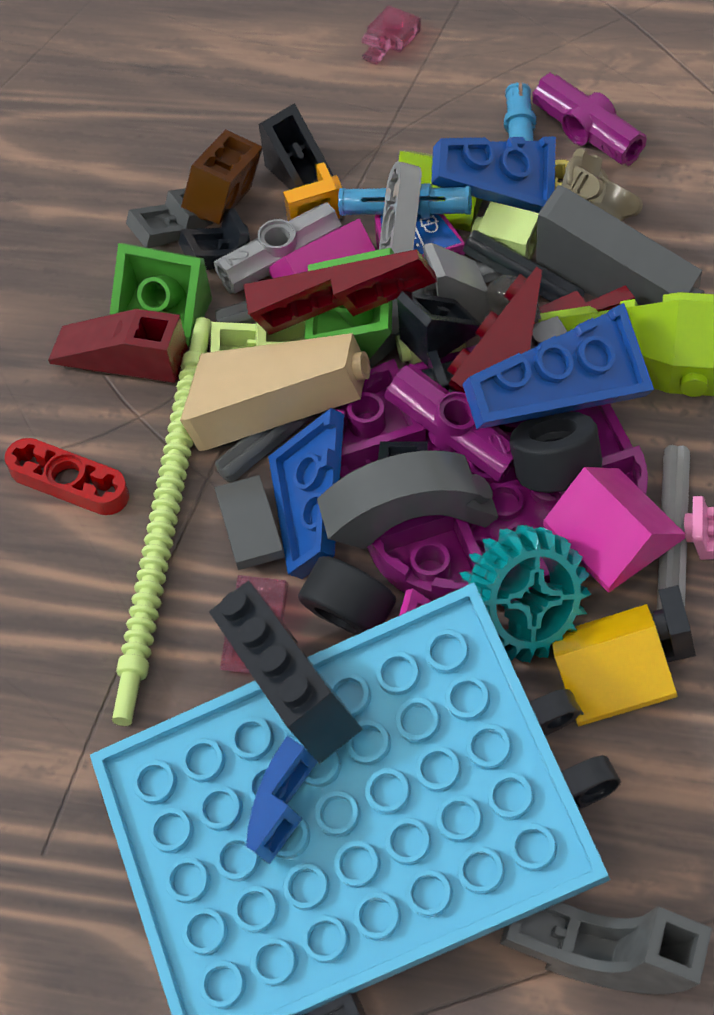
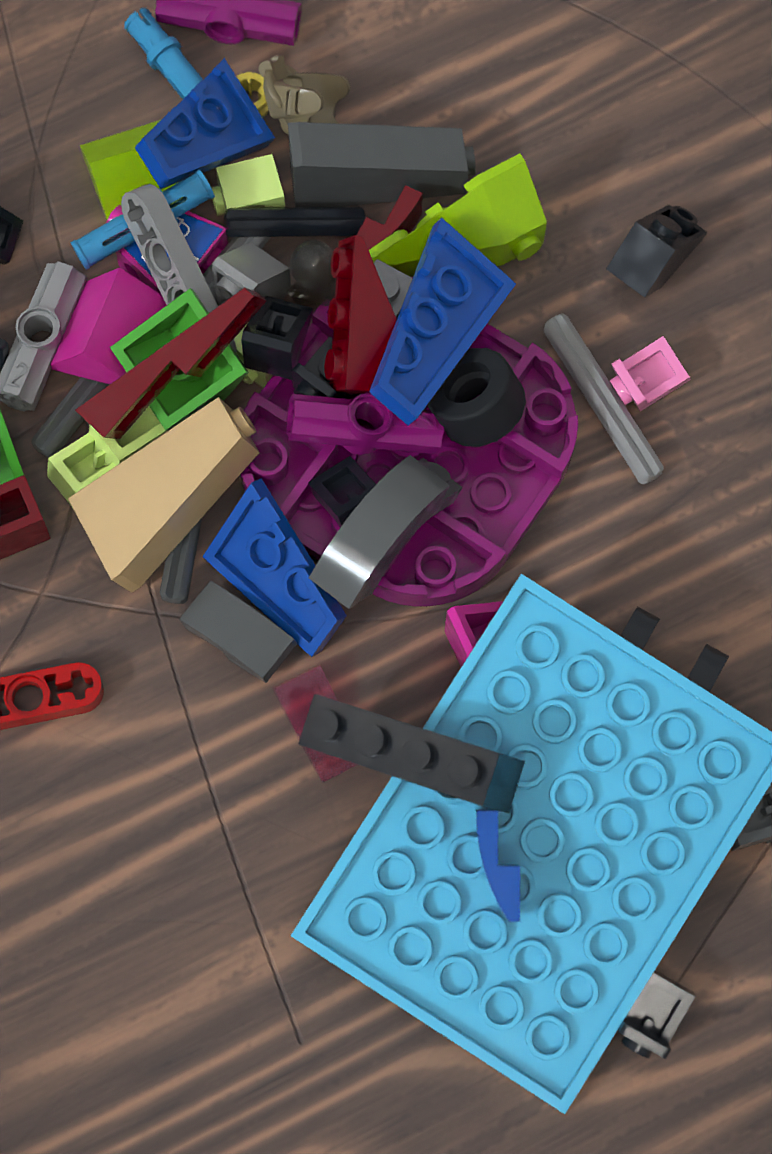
camera: 45 degrees left, 15 degrees up
(134, 665) = (245, 832): yellowish green hose -> none
(309, 196) = (28, 265): light orange bracket -> none
(346, 596) = (388, 646): black tyre -> none
(541, 612) = (541, 534): teal gear -> none
(612, 525) = (569, 438): dark pink slope -> none
(614, 665) = (643, 553): yellow slope -> none
(673, 625) = (667, 500): black bracket -> none

